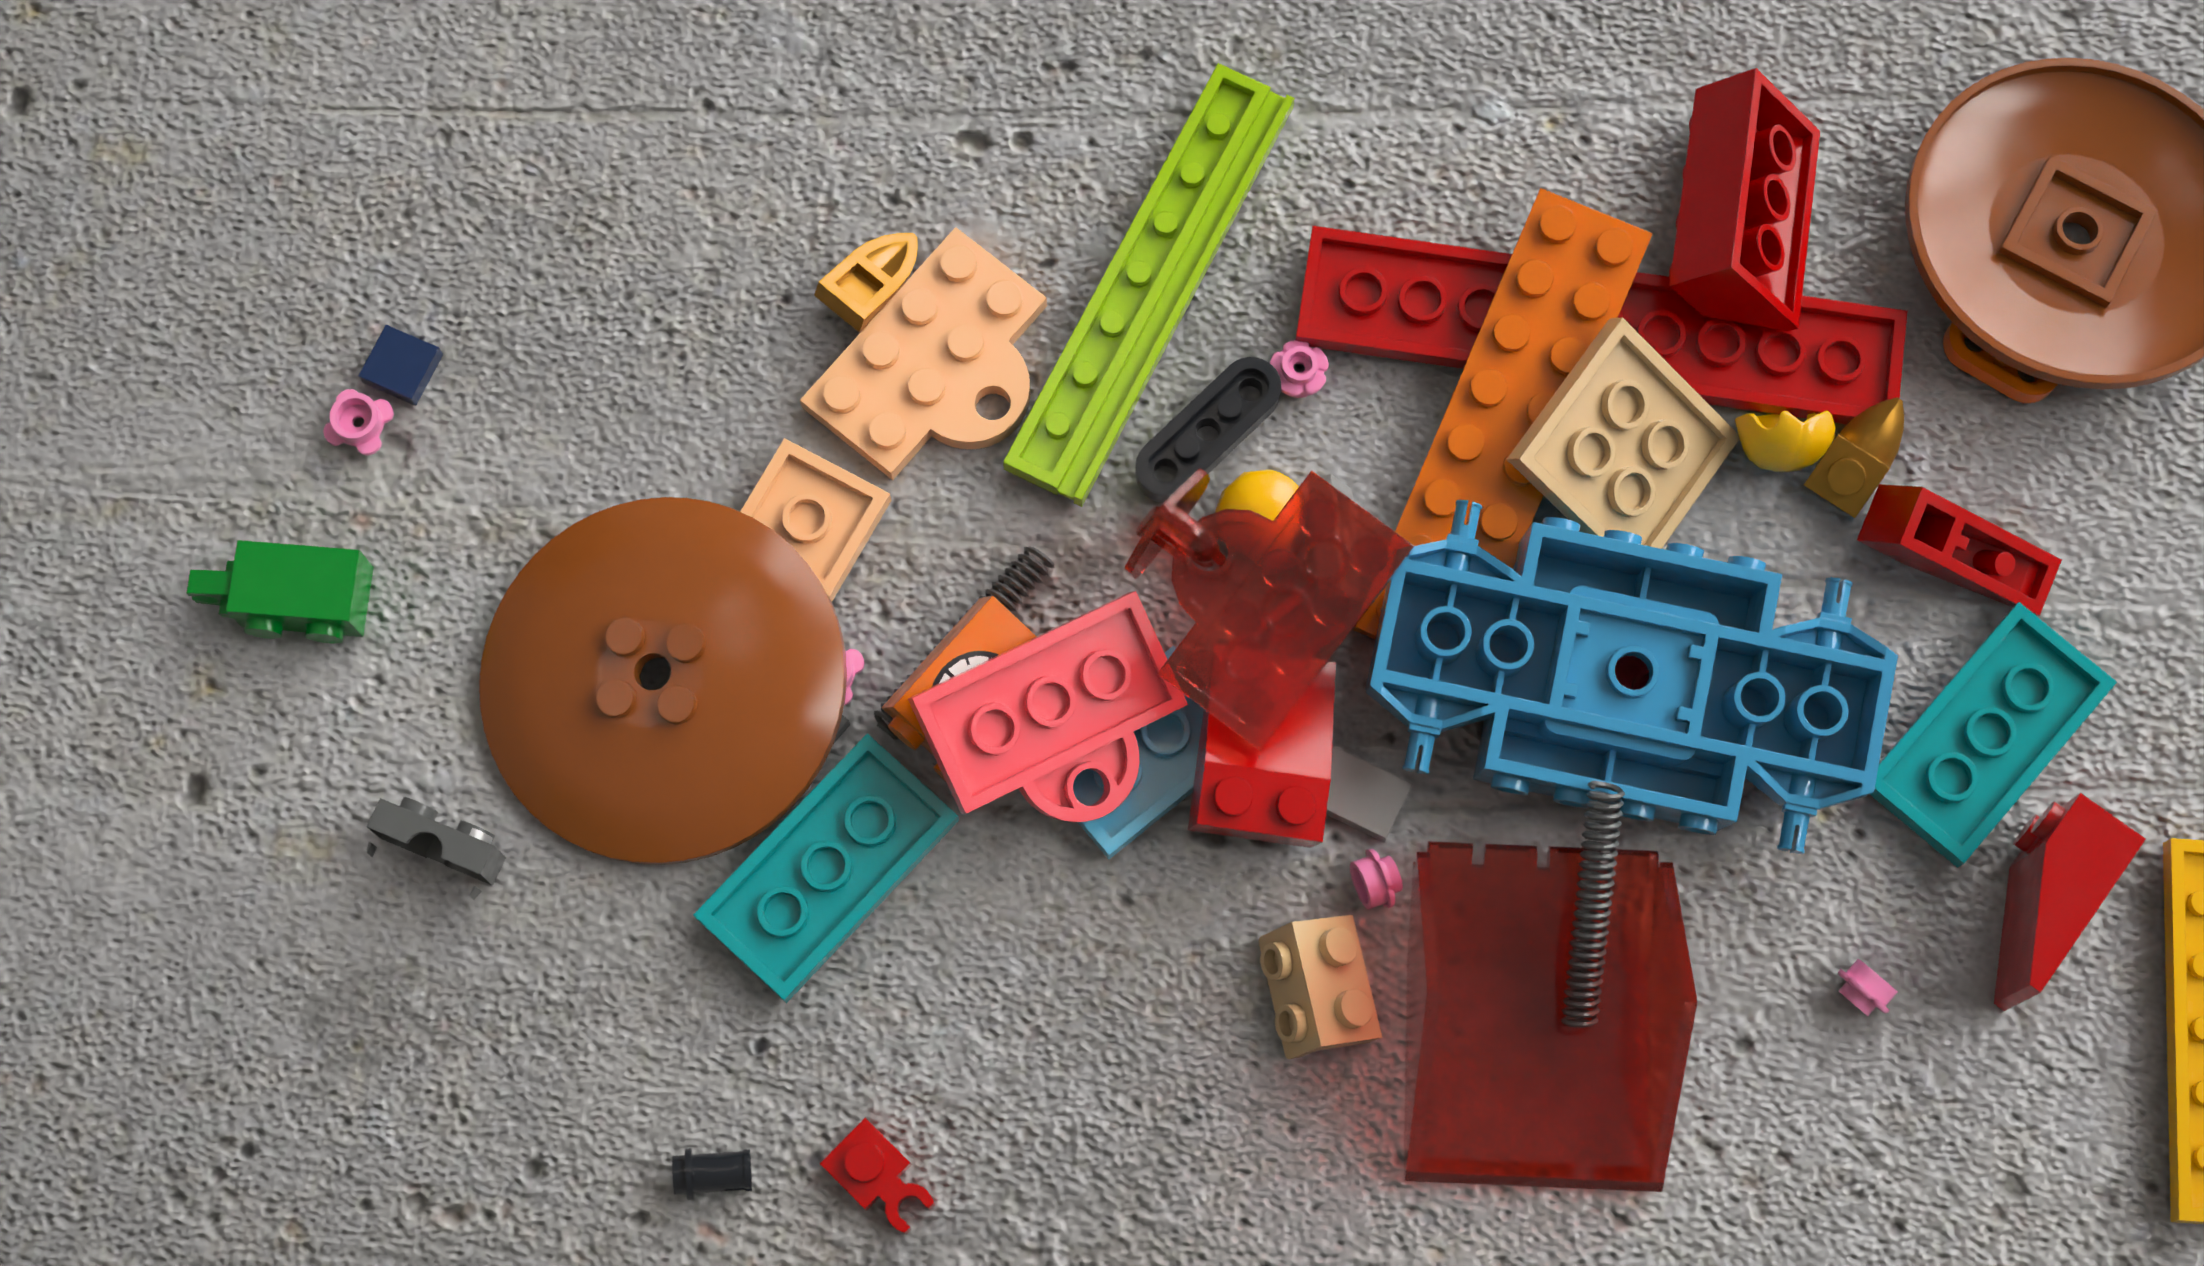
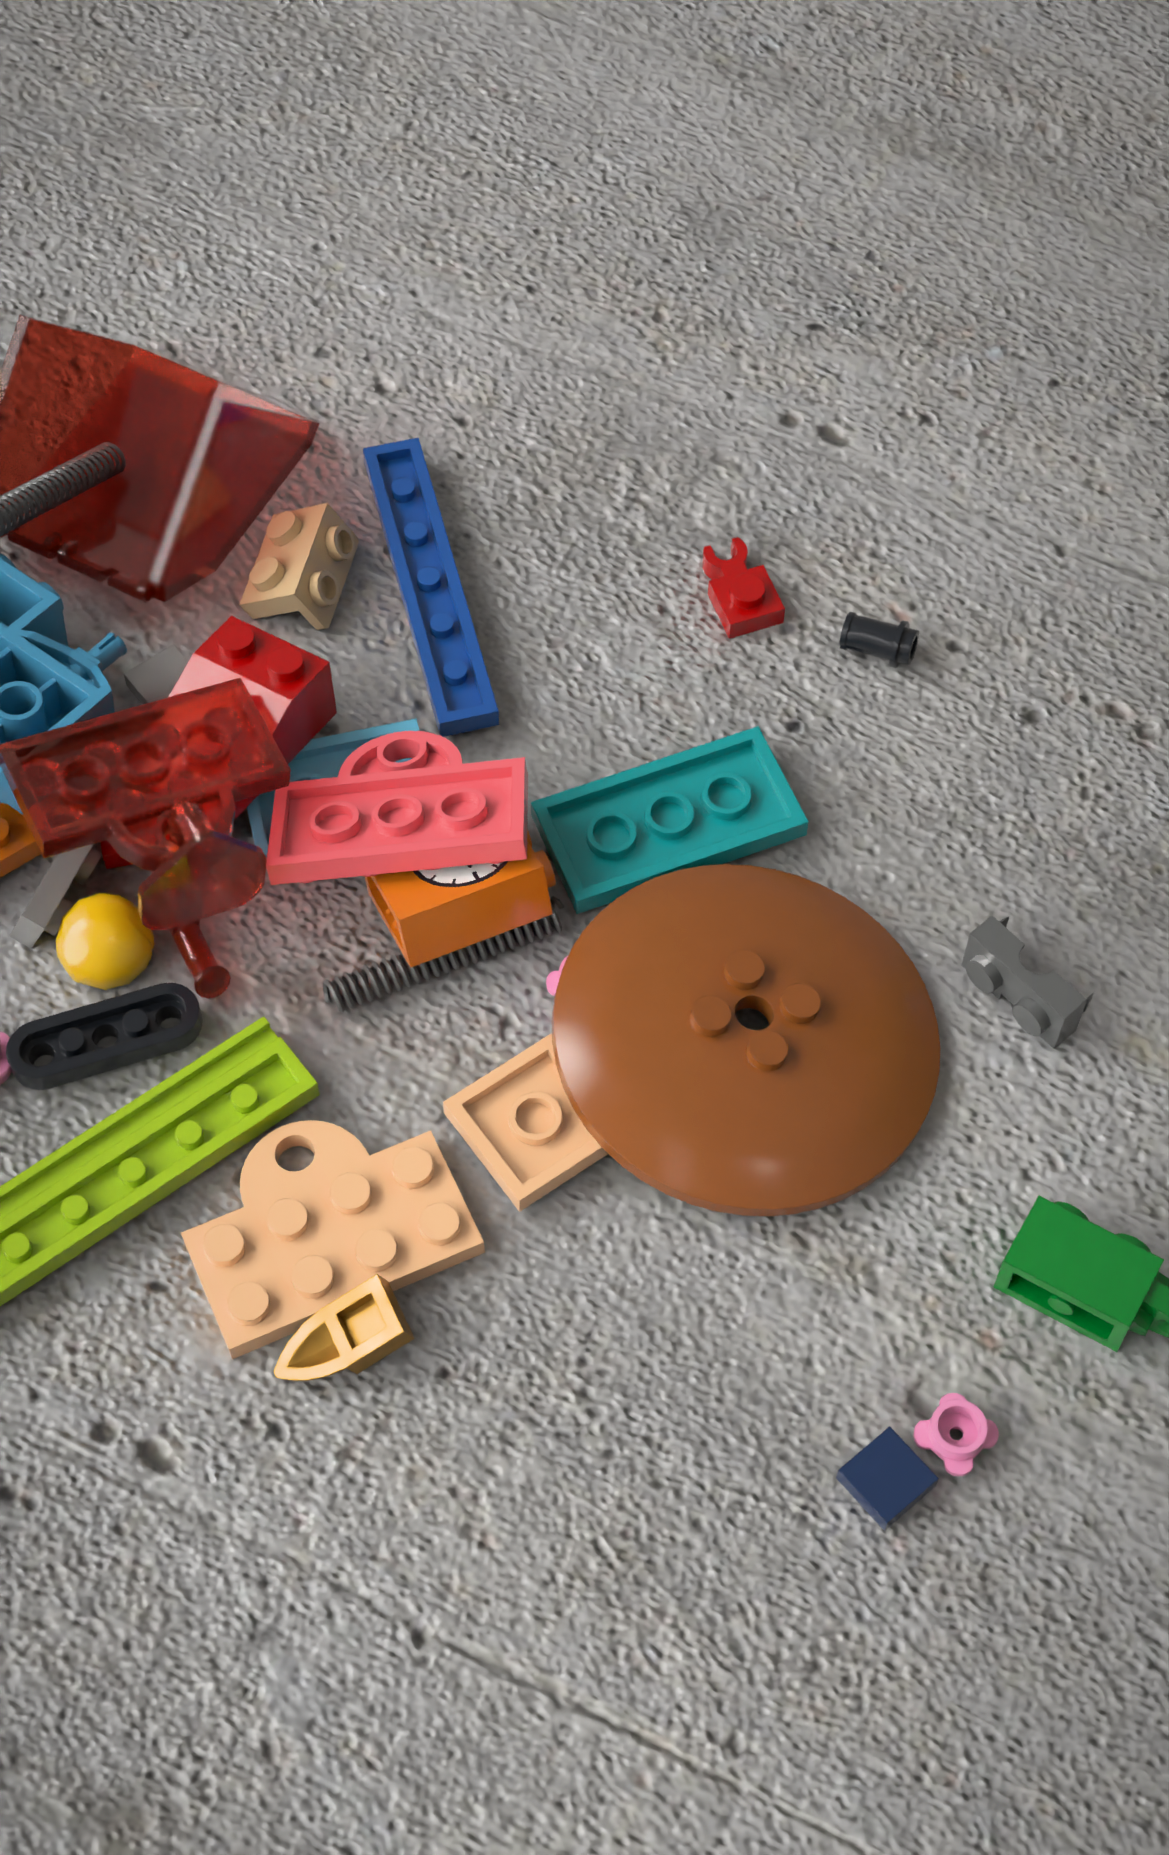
camera: 155 degrees left, 15 degrees down
(1184, 1027) = (430, 588): none -> blue plate
(1376, 880) = (201, 617): bright pink plate -> none

